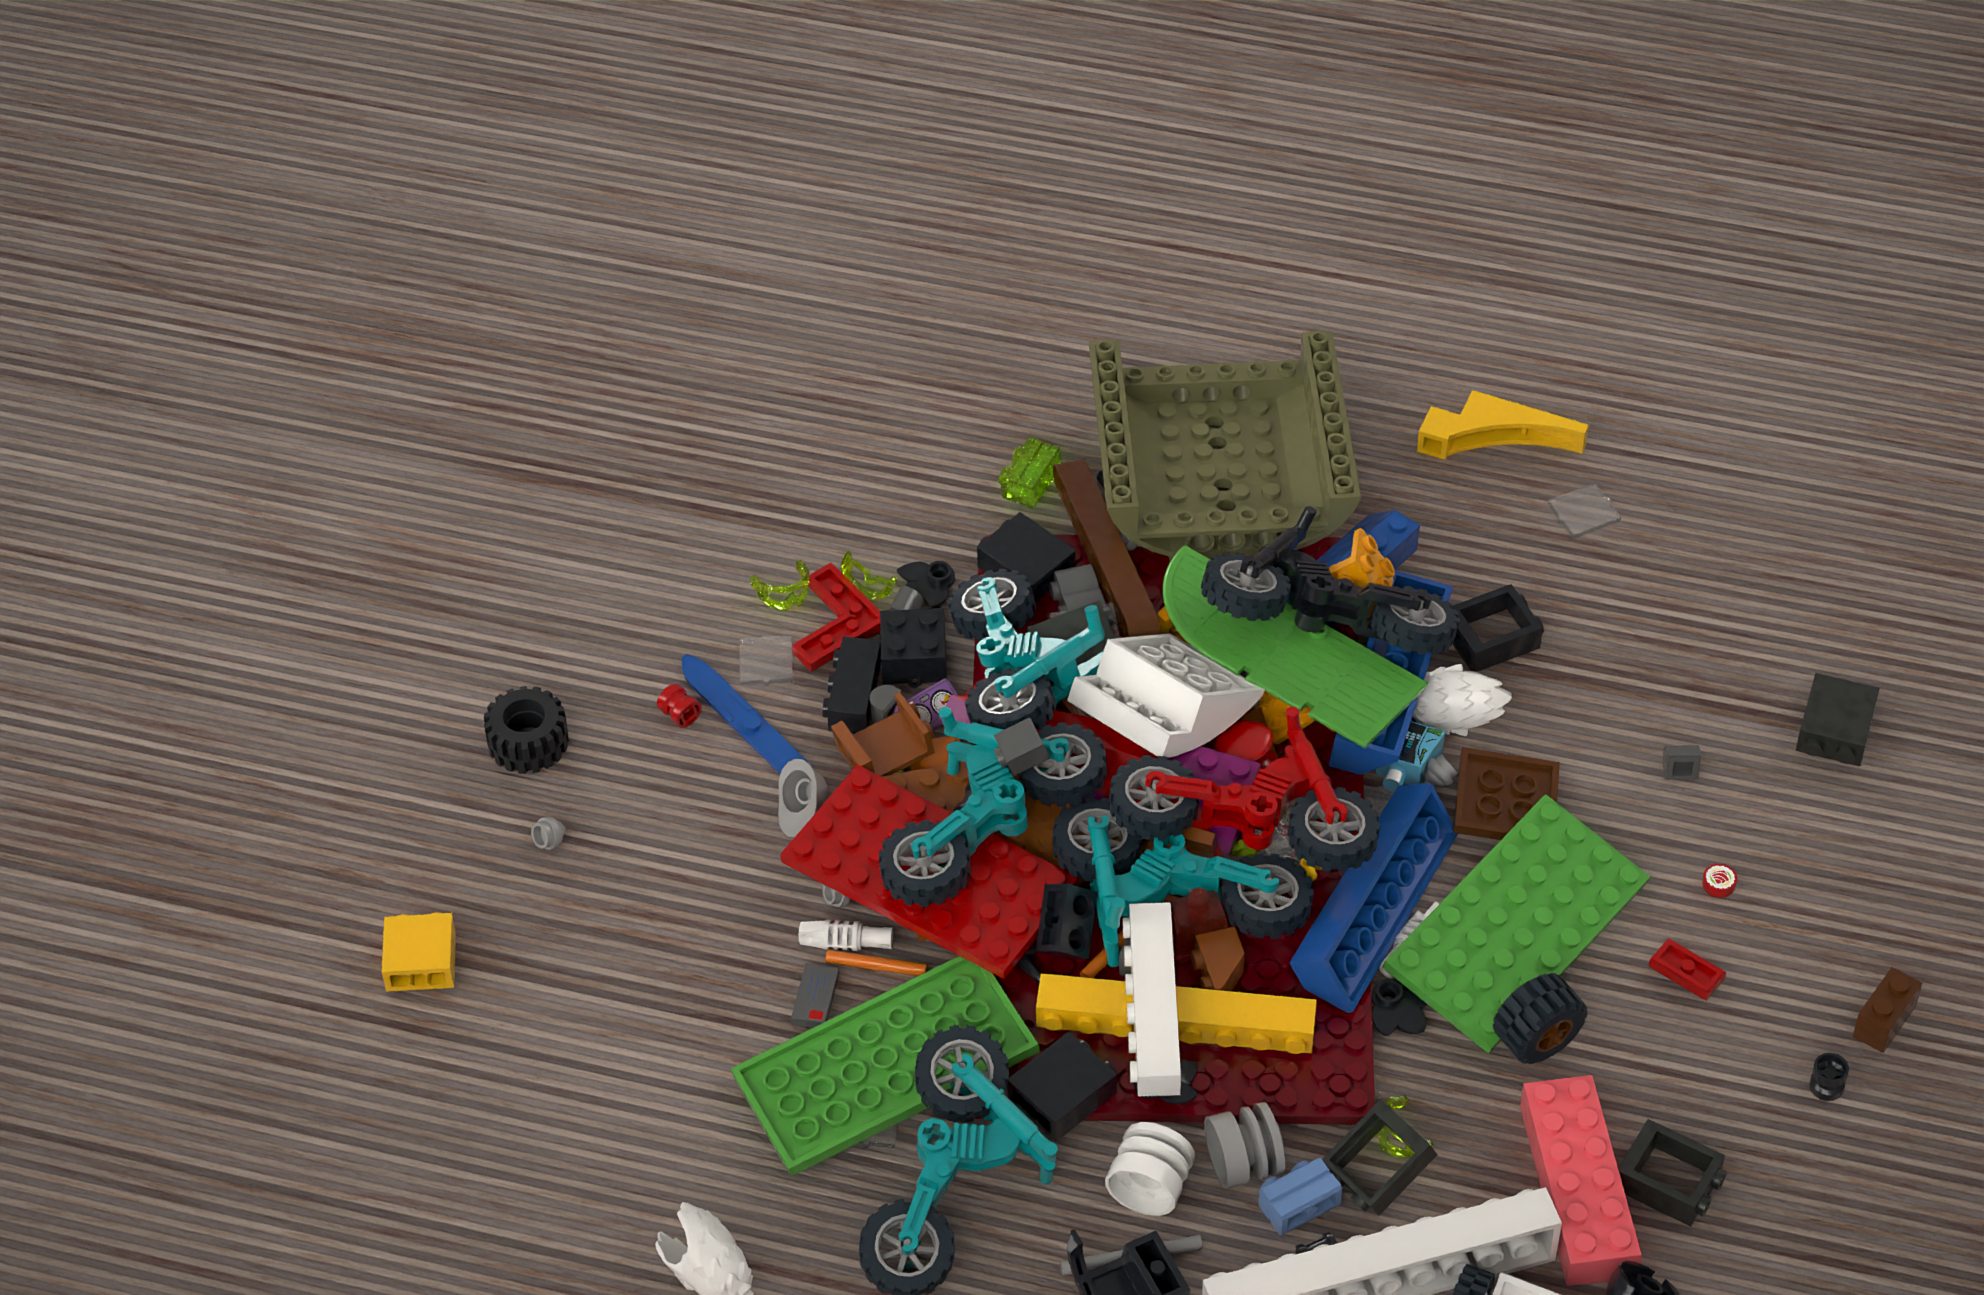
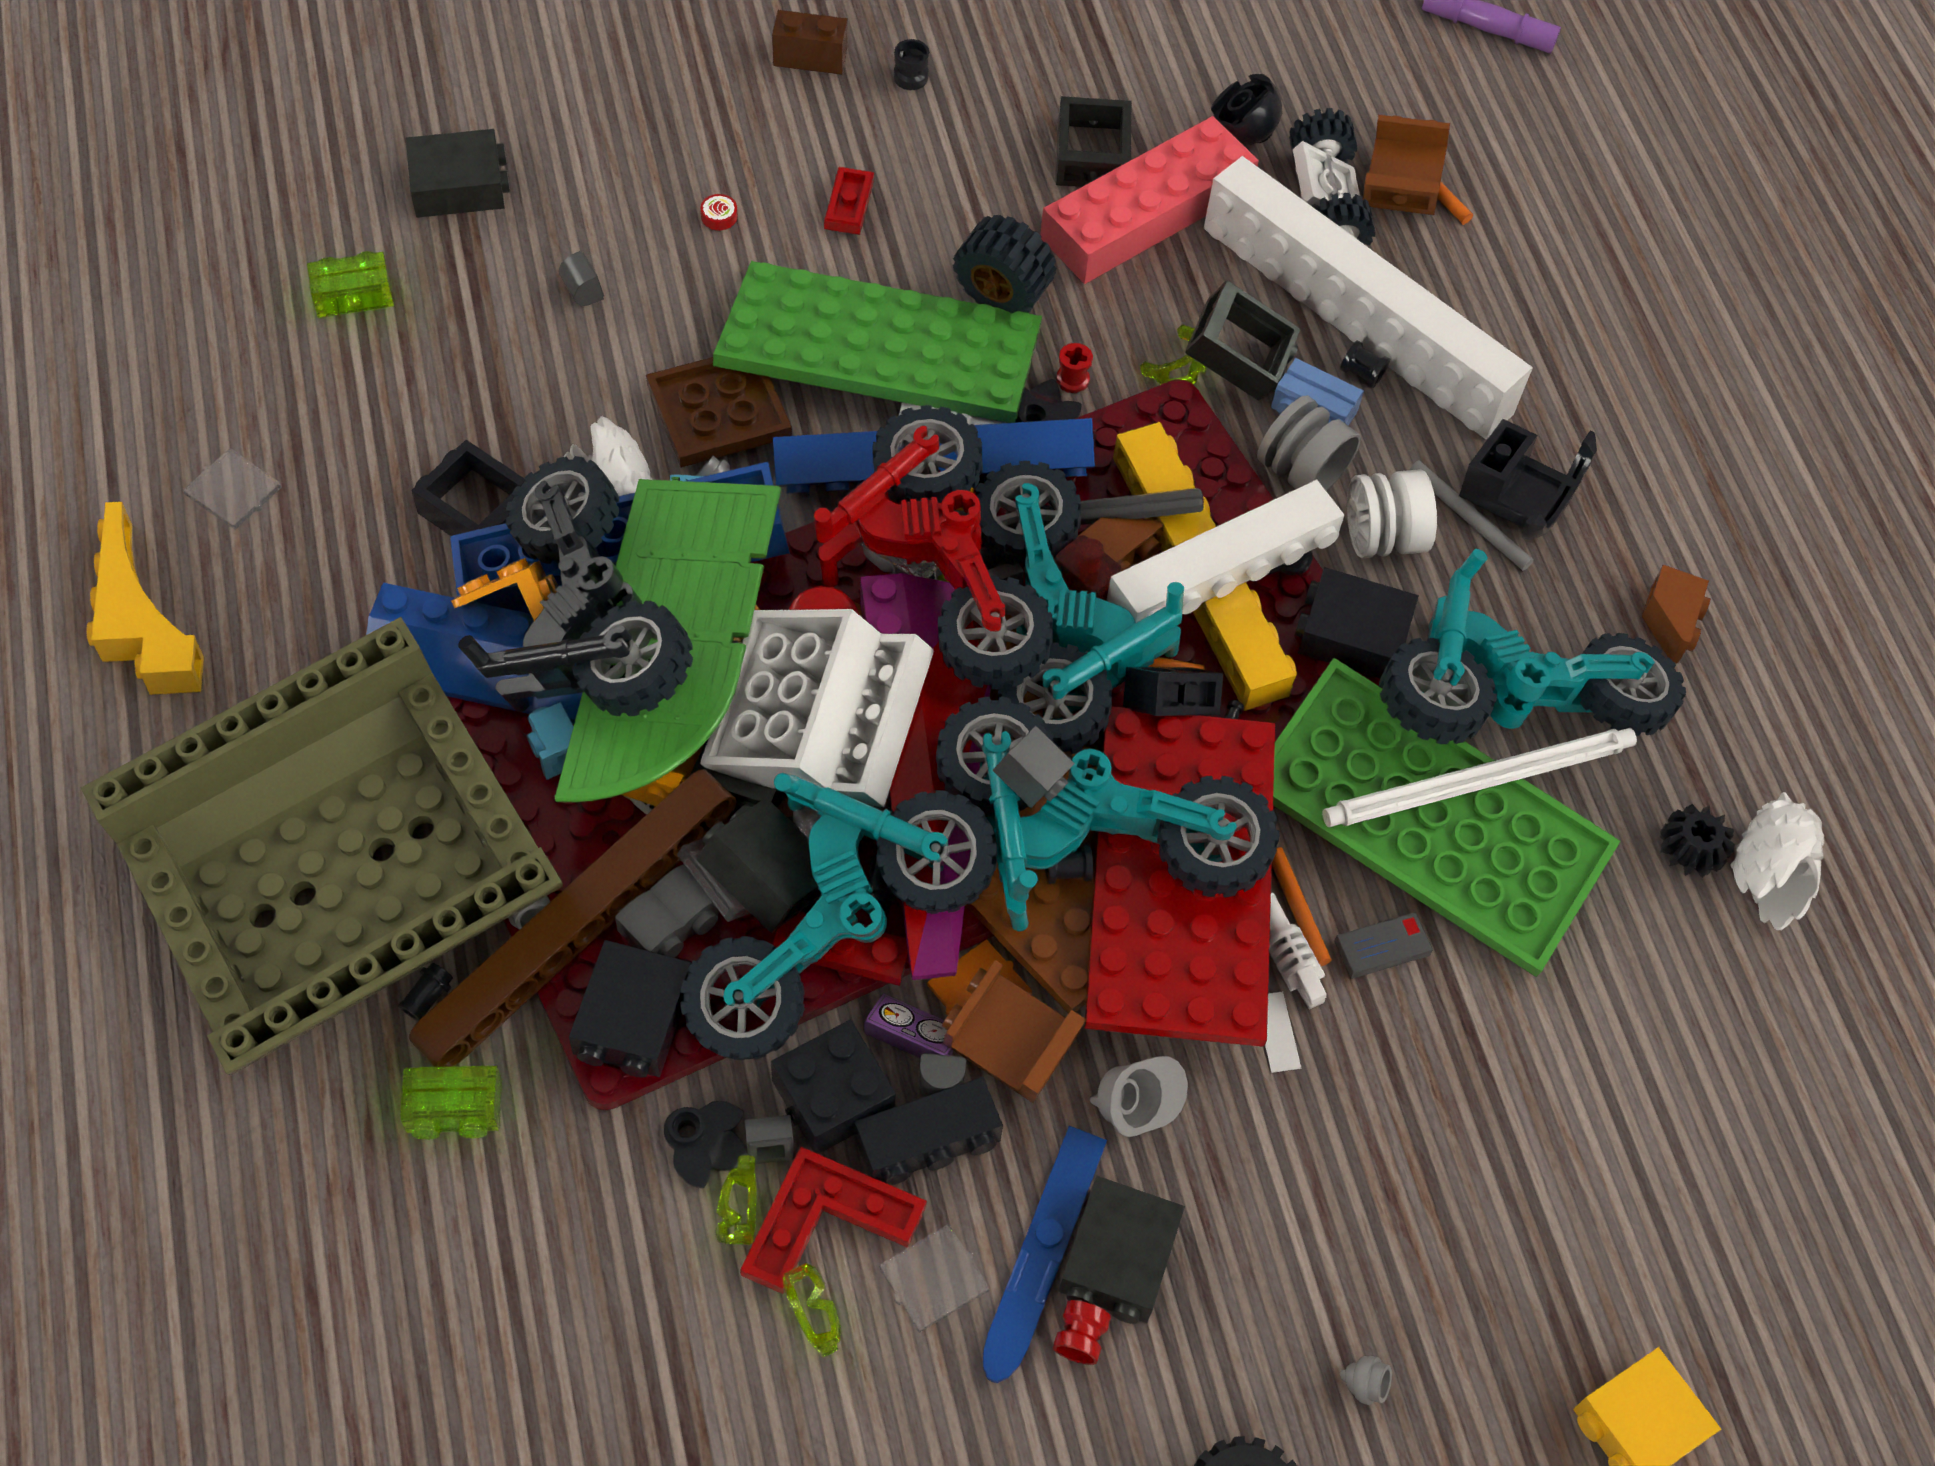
camera: 125 degrees left, 10 degrees up
(713, 747) = (1121, 1250): none -> pearl dark grey brick
(760, 1228) = (1697, 840): none -> black gear
(797, 908) = (1280, 1039): none -> white sticker
(886, 1093) = (1478, 777): none -> white piece
(1241, 972) = (1137, 506): none -> dark grey axle
(1422, 1043) = (1074, 362): none -> red bush
(1744, 621) = (350, 284): none -> clear neon green brick

